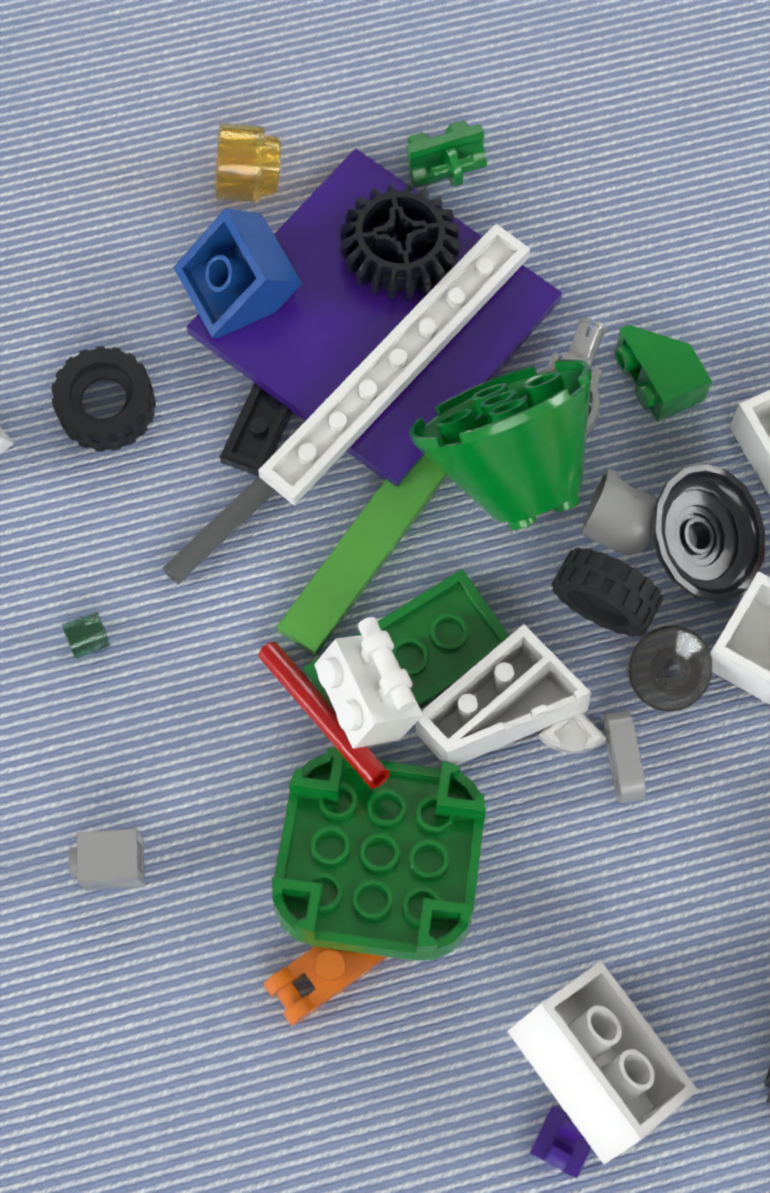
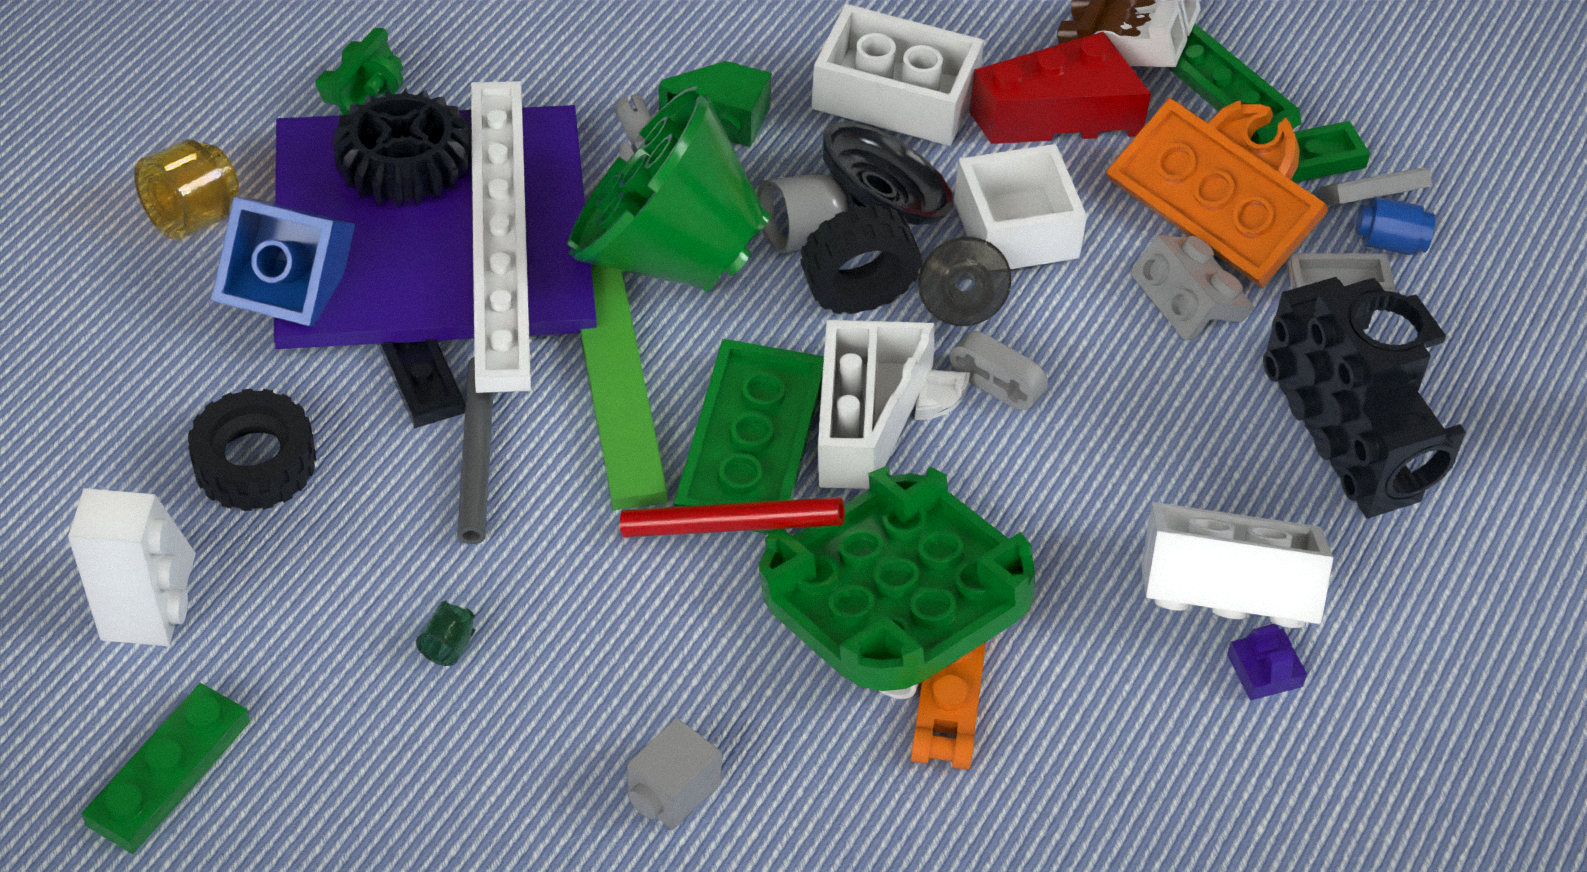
camera: 50 degrees left, 20 degrees down
(368, 687) = (755, 451): white brick -> none

